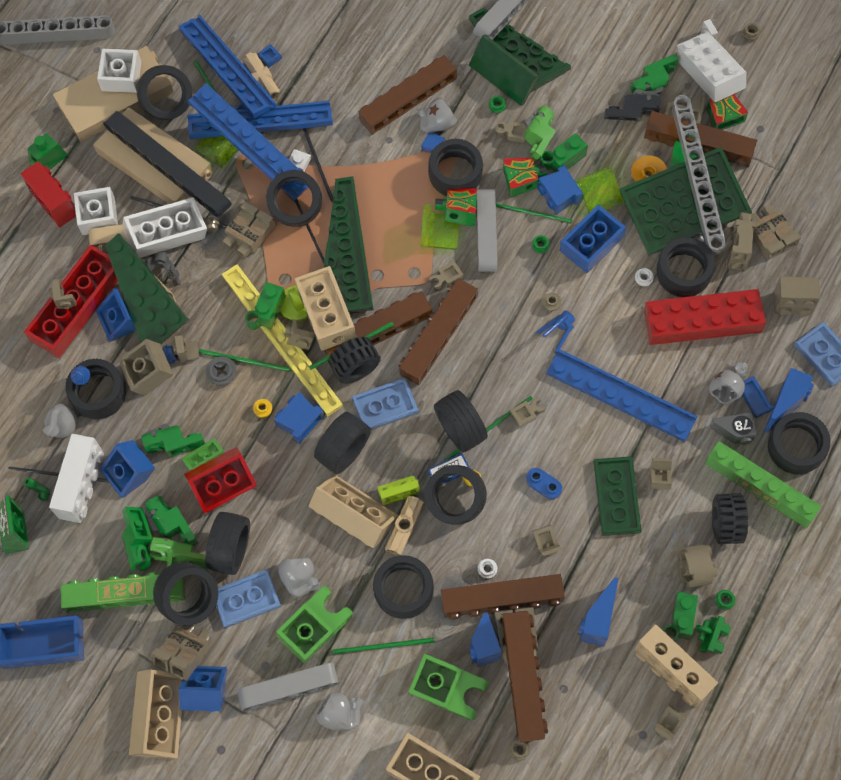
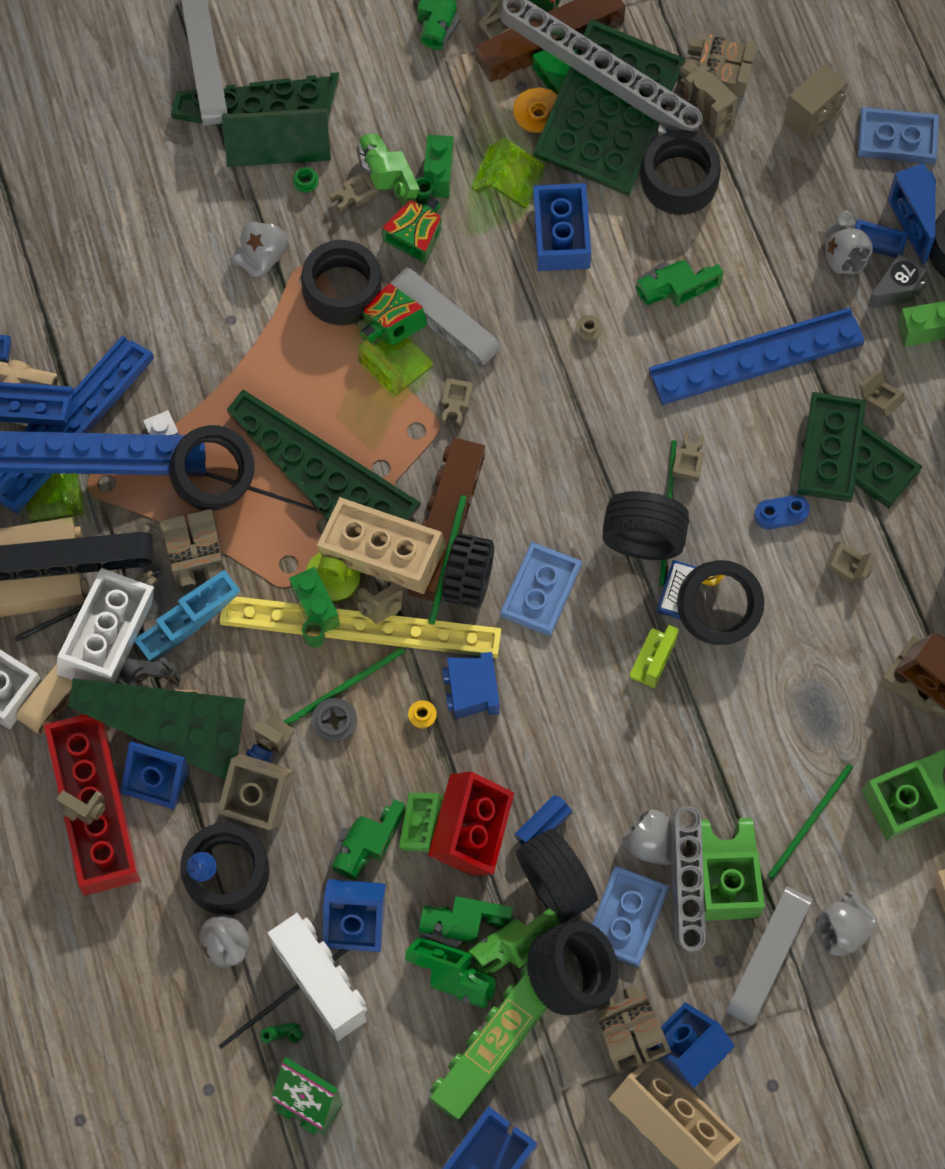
camera: 50 degrees left, 0 degrees up
(210, 258) = (187, 617): none -> dark azure slope
(259, 514) = (548, 817): none -> blue axle
(278, 611) = (695, 891): none -> light grey beam
(318, 164) = (178, 410): black axle -> none
(342, 442) = (555, 662): black tyre -> none
(353, 510) = (634, 722): tan slope -> none
(399, 563) = (777, 711): black tyre -> none
(400, 536) = (707, 700): tan piece -> none
(407, 94) = (200, 253): reddish brown brick -> none
(431, 142) = (284, 280): blue tile -> none
(438, 331) = (513, 464): reddish brown brick -> none
(484, 643) = (906, 713): blue slope -> none
(487, 562) = (823, 638): white plate -> none
(502, 596) = (868, 656): reddish brown brick -> none
(533, 212) = (471, 255): green axle -> none
(540, 239) = (512, 275): green plate -> none
(559, 190) = (471, 208): blue hips -> none
(562, 321) = (623, 337): blue plant -> none
(604, 475) = (831, 447): none -> dark green tile
(621, 320) = (676, 282): none -> green plate
(634, 105) = (452, 56): black plate -> none
(644, 272) = (652, 214): white plate -> none
(704, 317) = (751, 204): red brick -> none

